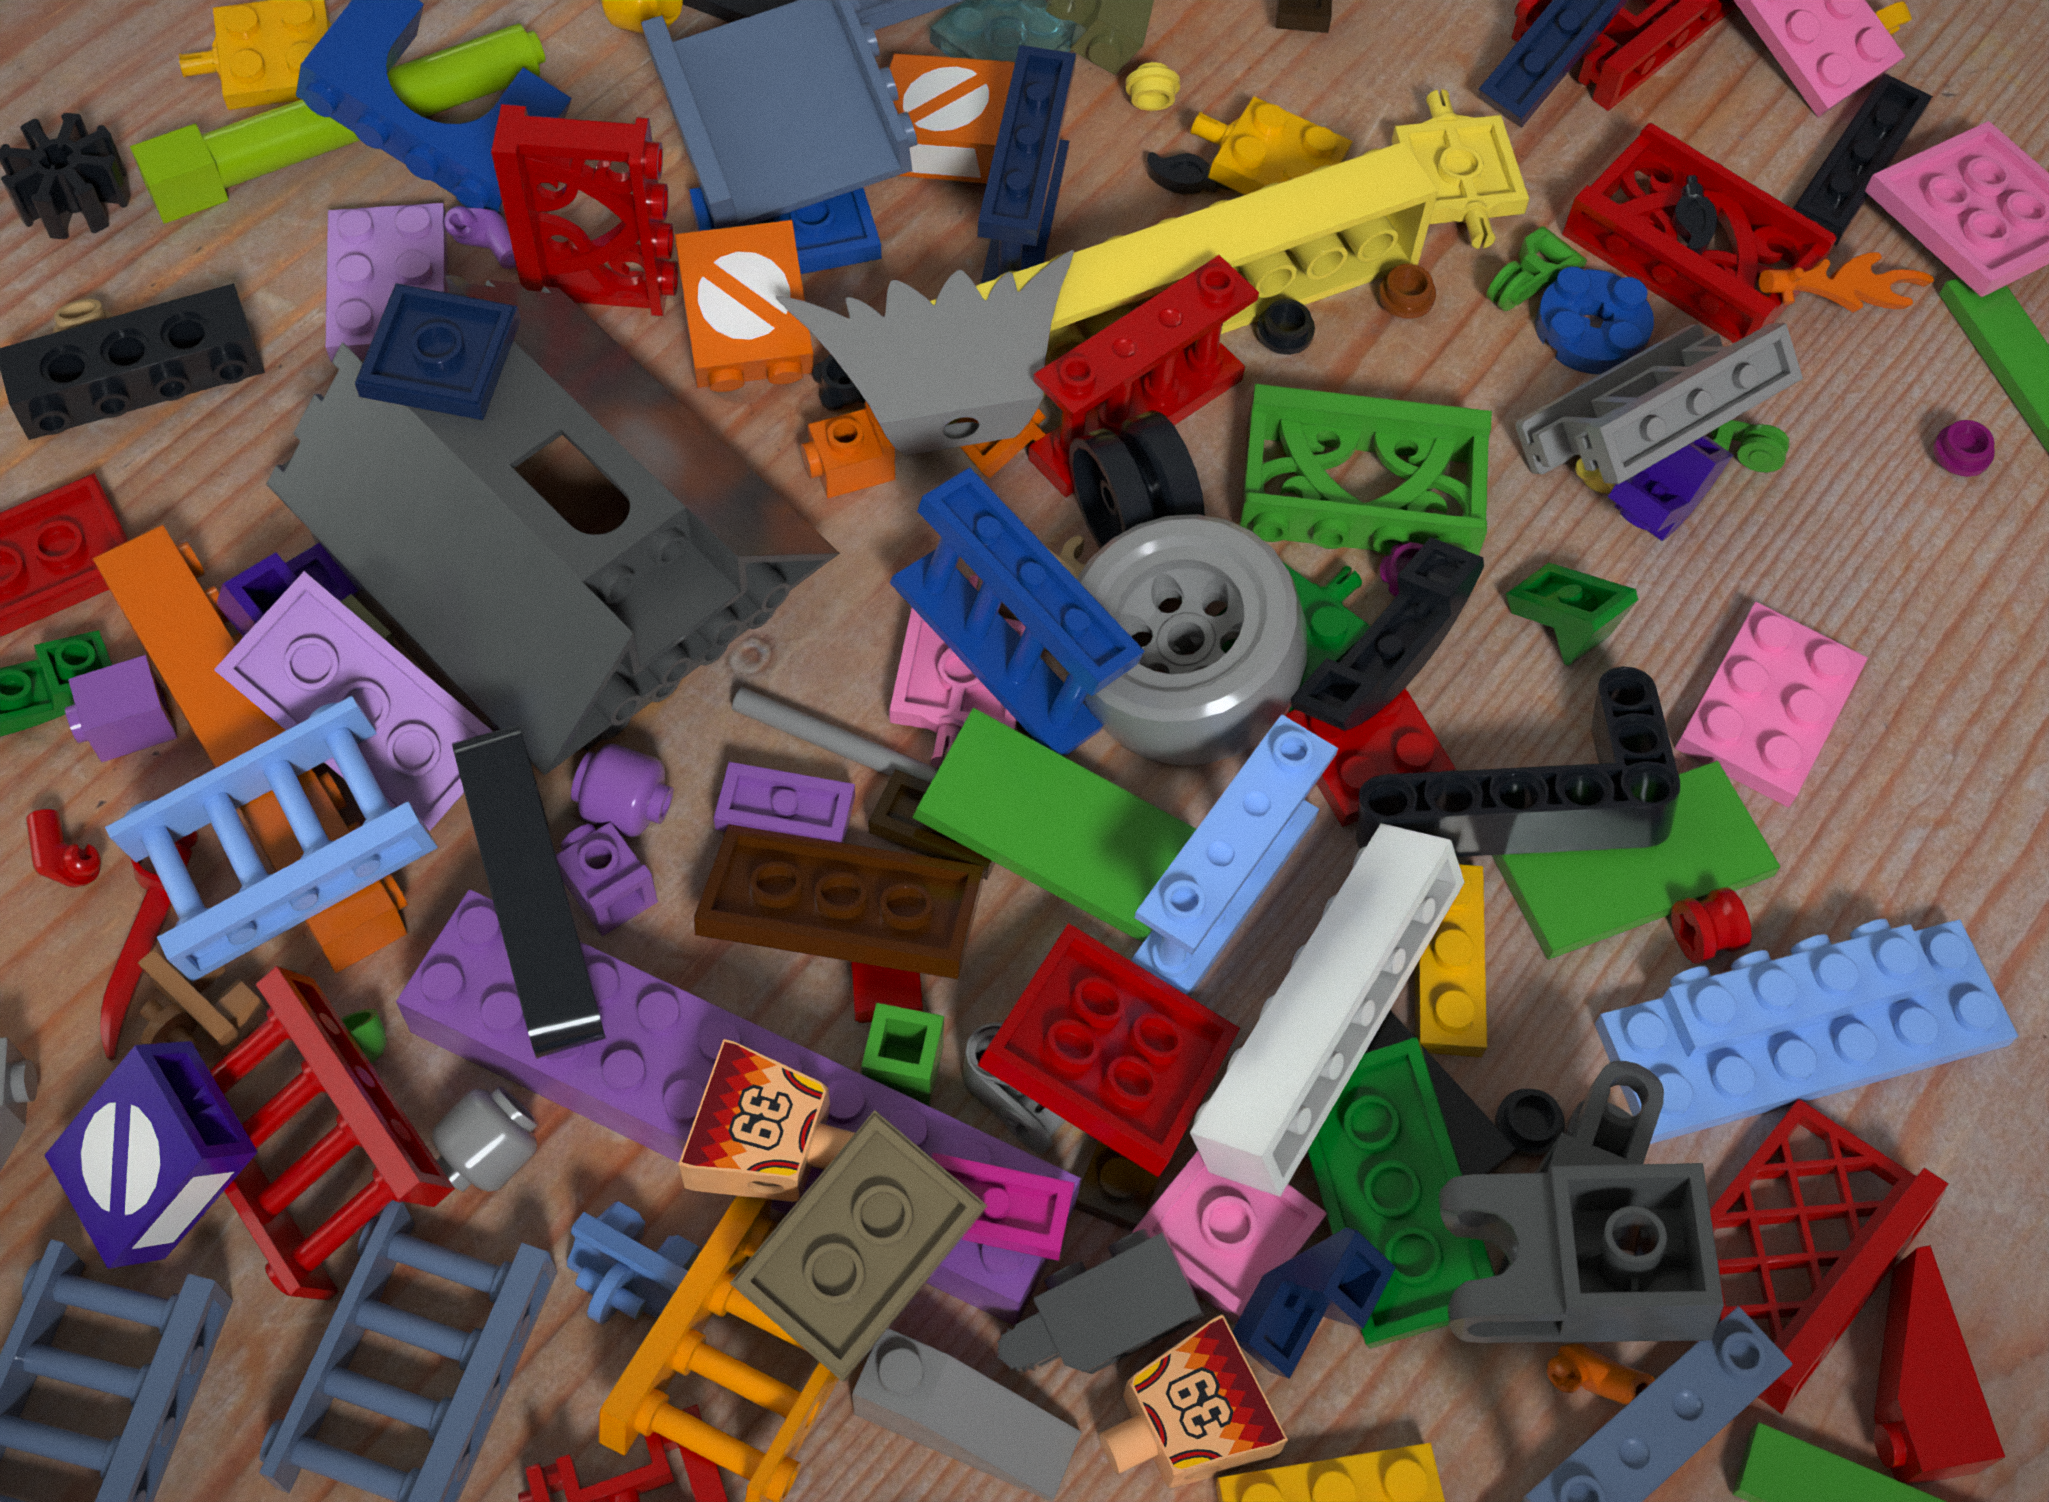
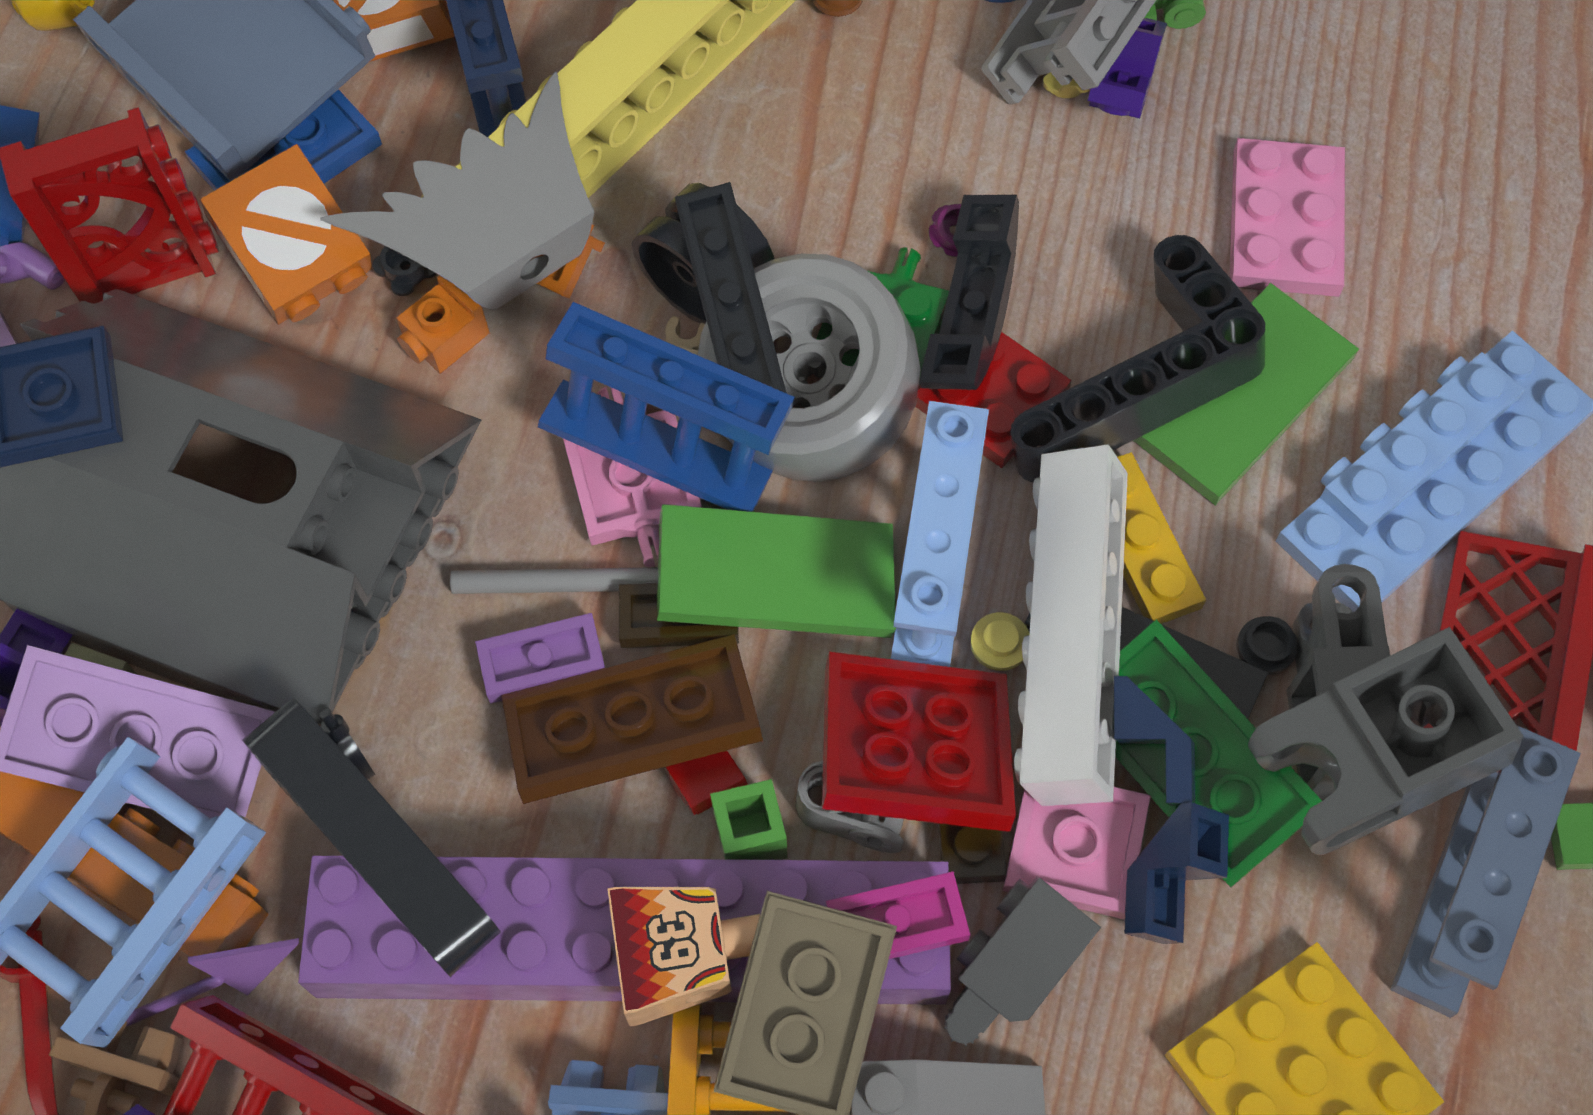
camera: 20 degrees left, 5 degrees up
(350, 964) = (238, 968): none -> medium lavender piece
(367, 1031) = (280, 1016): bright green hinge -> none
(485, 1139) = (431, 1062): light grey head -> none
(553, 786) = (338, 731): none -> black piece
(610, 893) = (432, 800): medium lavender brick -> none
(621, 789) = (395, 707): medium lavender head -> none
(1138, 520) = (728, 284): none -> black tile
(1151, 359) = (660, 148): red fence -> none
(1196, 1412) = (1126, 1007): torso -> none
(1245, 991) = (998, 641): none -> light yellow plate
(1286, 327) = (753, 63): black plate -> none
(1330, 515) = (866, 208): bright green fence -> none
(1349, 1130) = (1143, 722): none -> dark blue slope
(1575, 604) = (1098, 202): green slope -> none
(1582, 1366) = (1425, 825): orange arm -> none
(1711, 925) = (1330, 420): red wheel -> none

